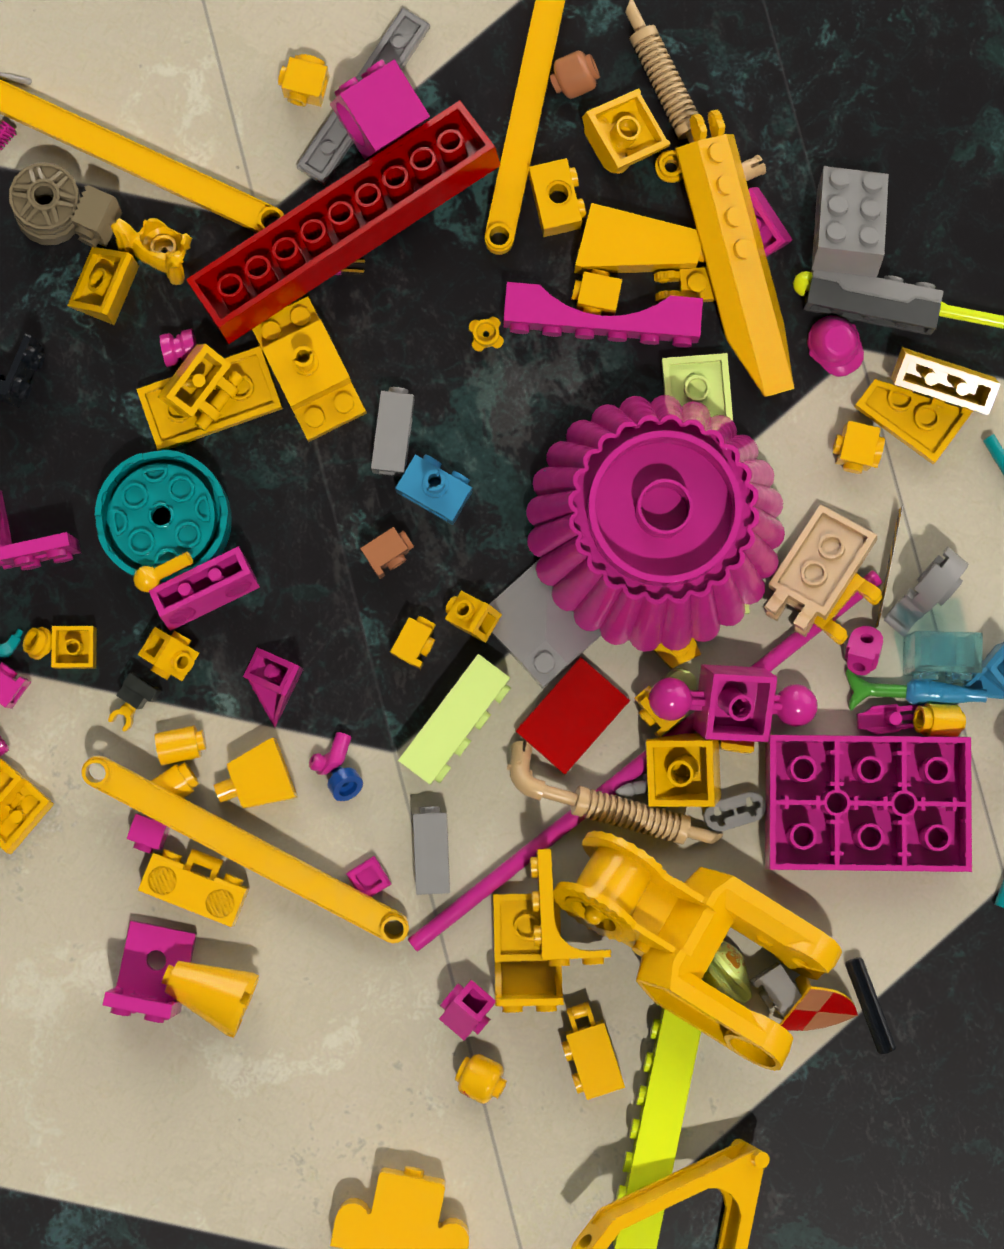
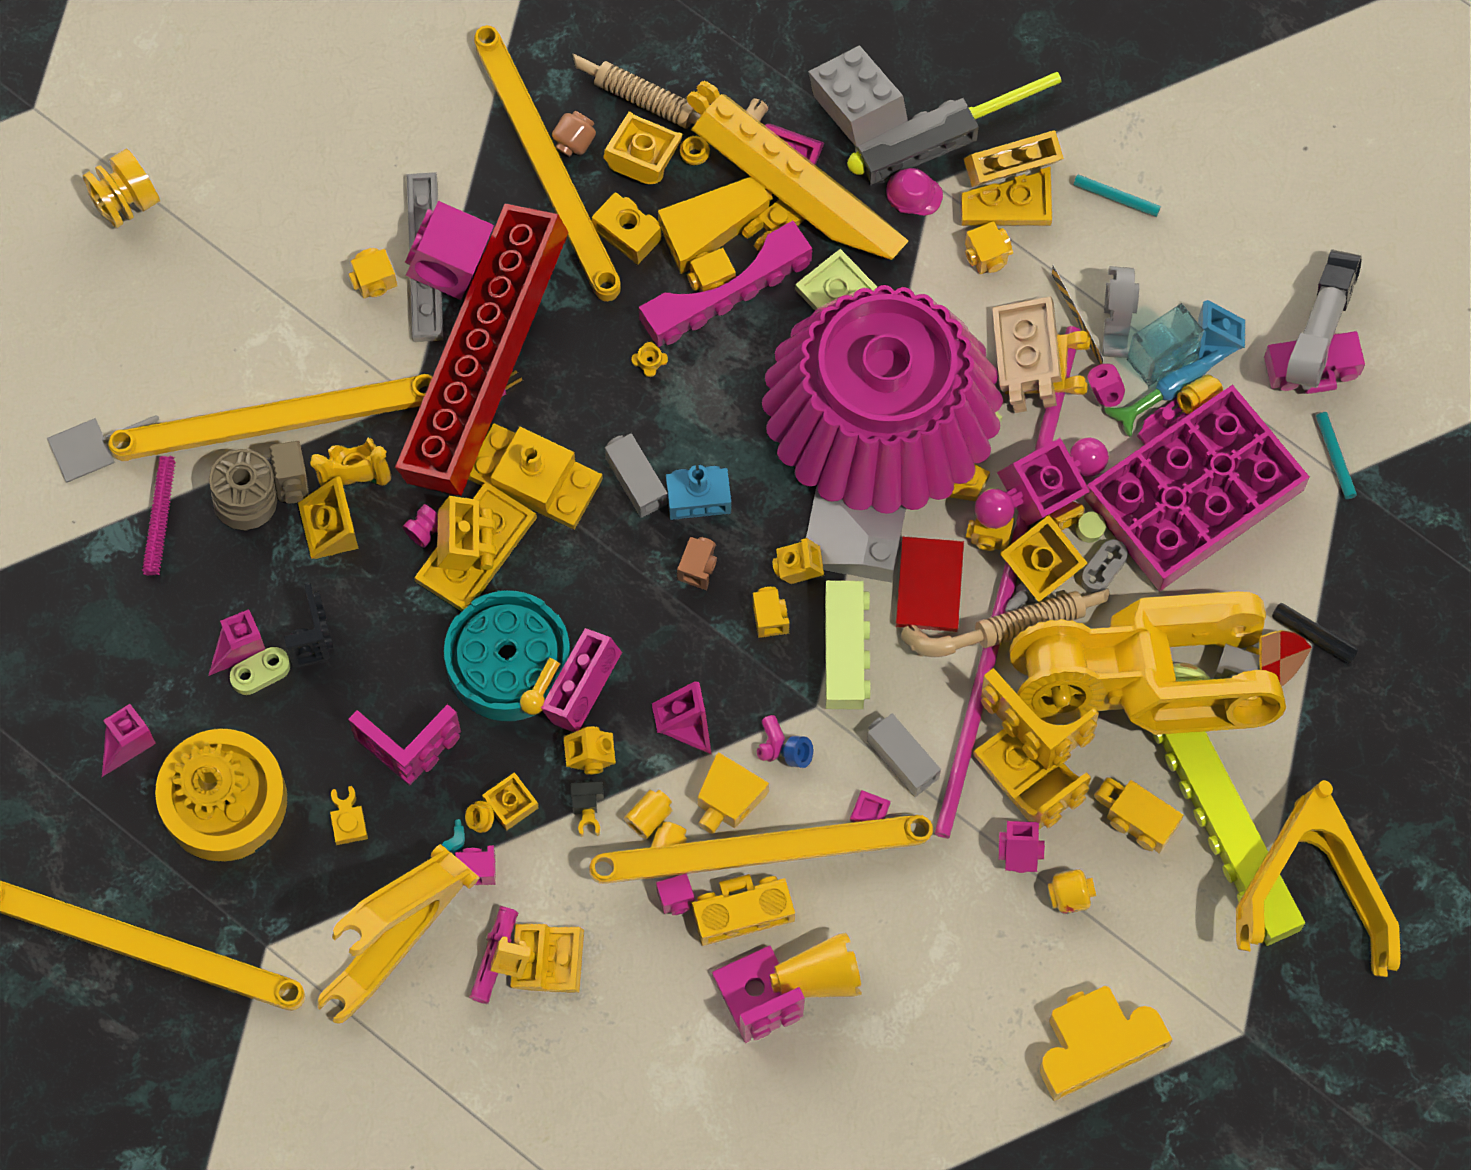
camera: 35 degrees left, 15 degrees down
(750, 768) = (1090, 527): none -> yellowish green piece

